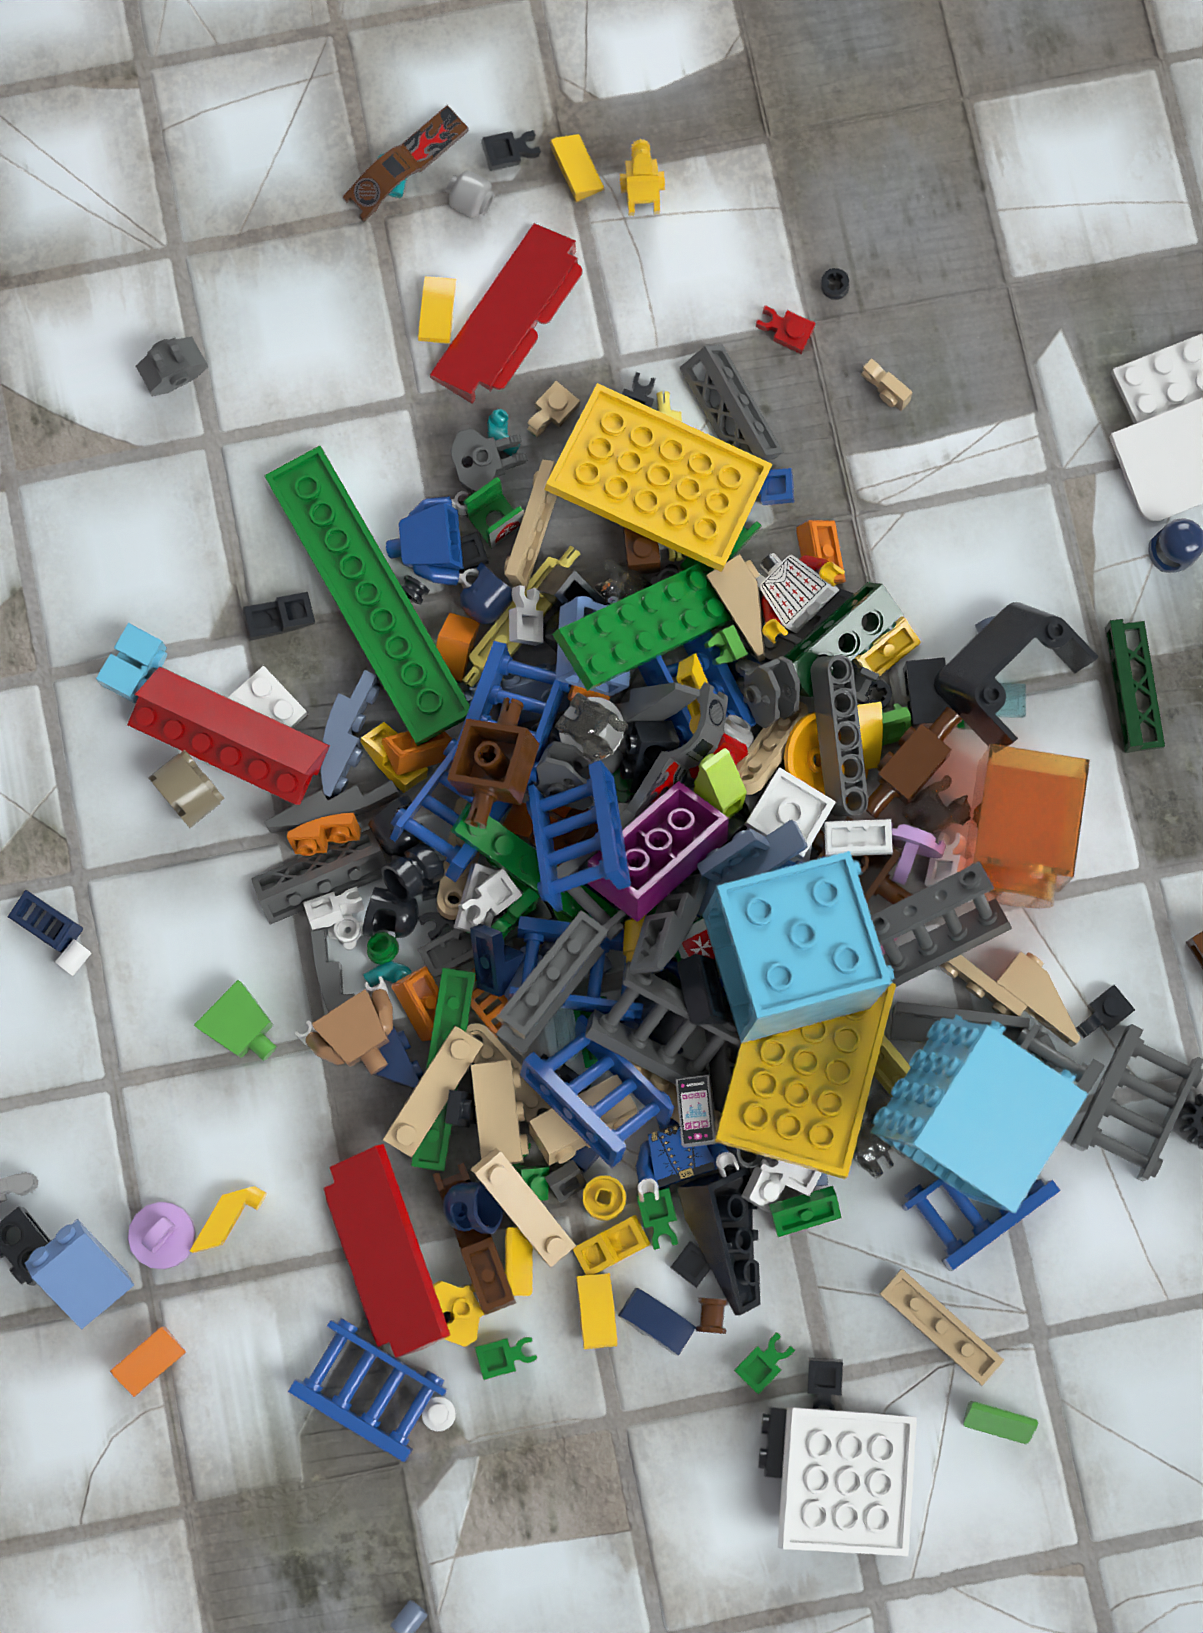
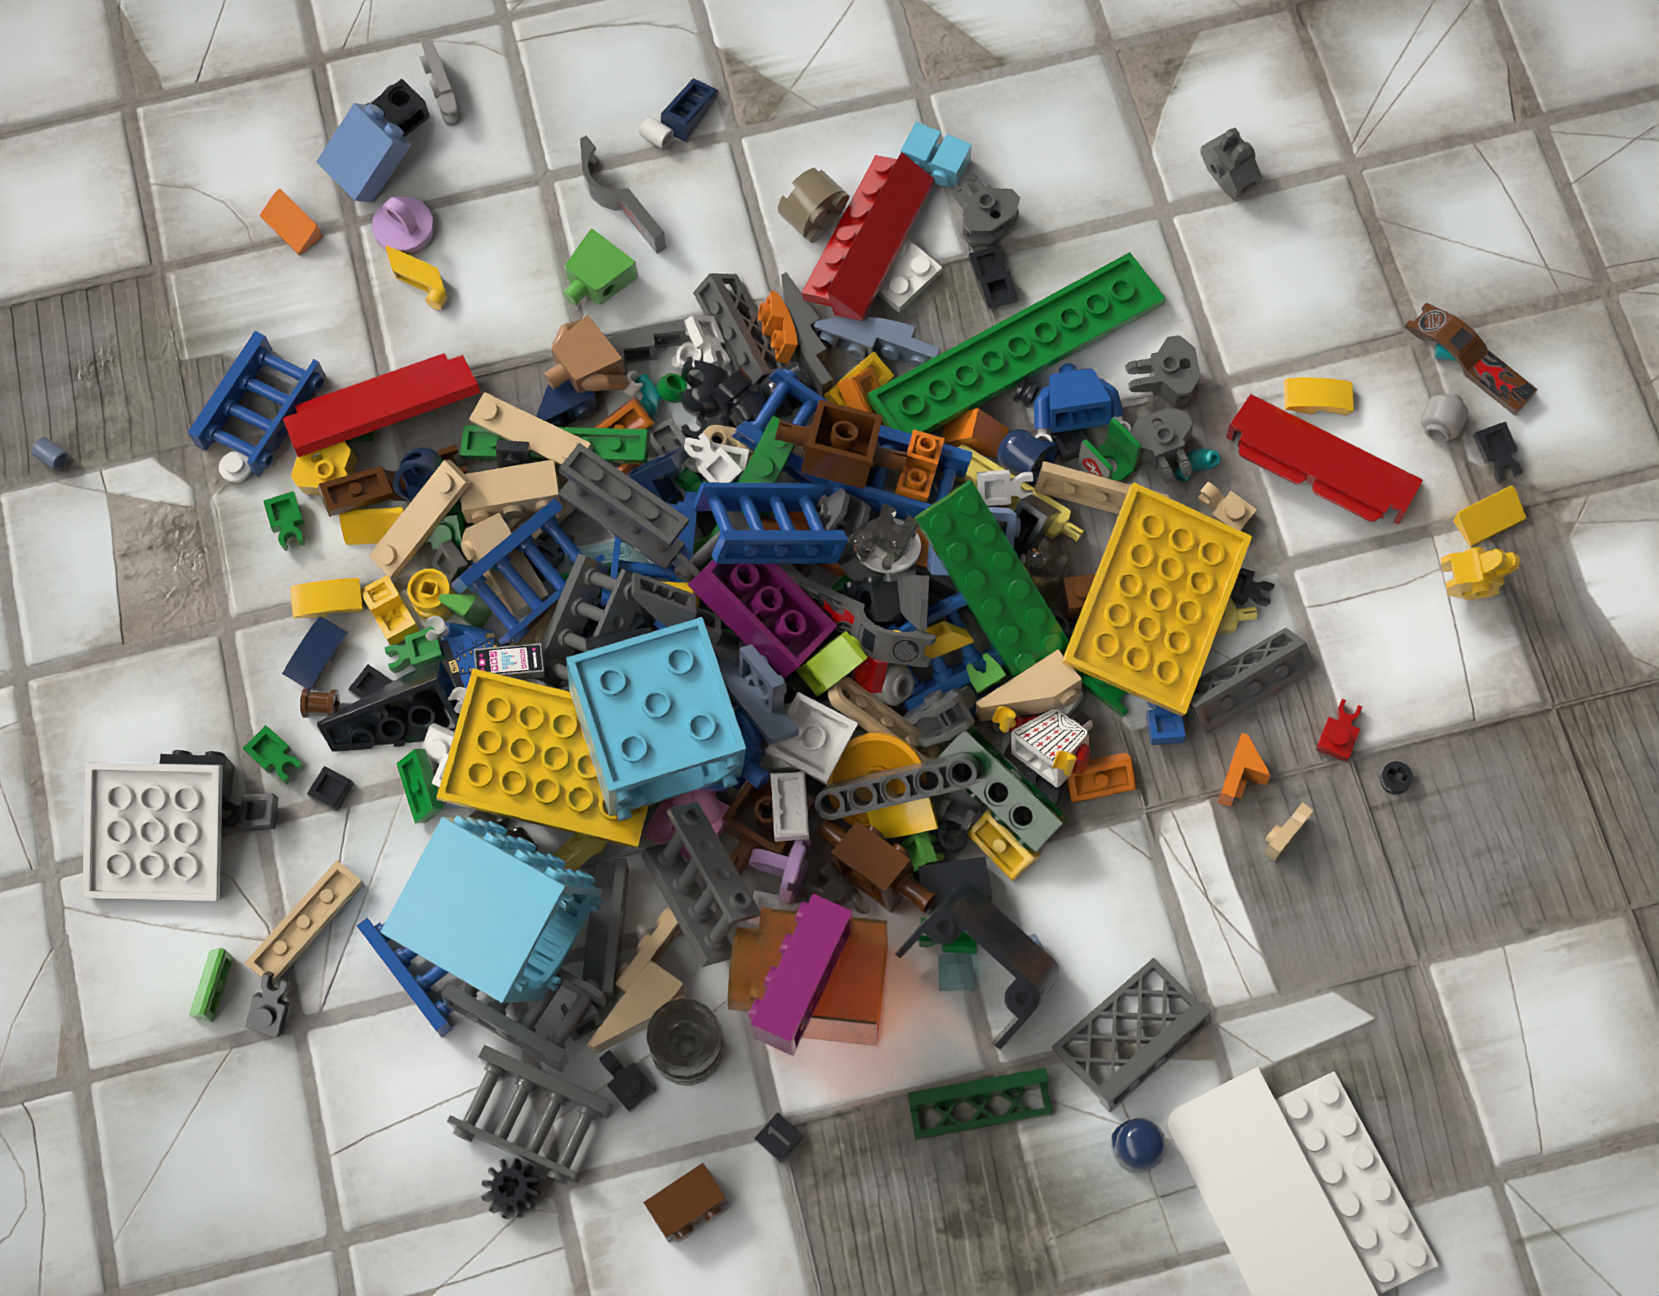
camera: 90 degrees right, 10 degrees down
(158, 989) = (620, 200): none -> dark grey piece
(201, 612) = (986, 212): none -> dark grey hinge
(405, 450) = (1171, 370): none -> dark grey hinge
(497, 683) = (920, 466): none -> orange slope
(628, 1164) = (467, 607): none -> bright green slope
(800, 1305) = (330, 788): none -> black tile
(817, 420) = (1244, 764): none -> orange slope
(1027, 1359) = (268, 1009): none -> plate
(1053, 819) = (802, 974): none -> magenta brick
(1083, 933) = (690, 1023): none -> clear smoke wheel
(1096, 527) = (1158, 1048): none -> dark grey fence
(1161, 871) = (779, 1137): none -> black tile

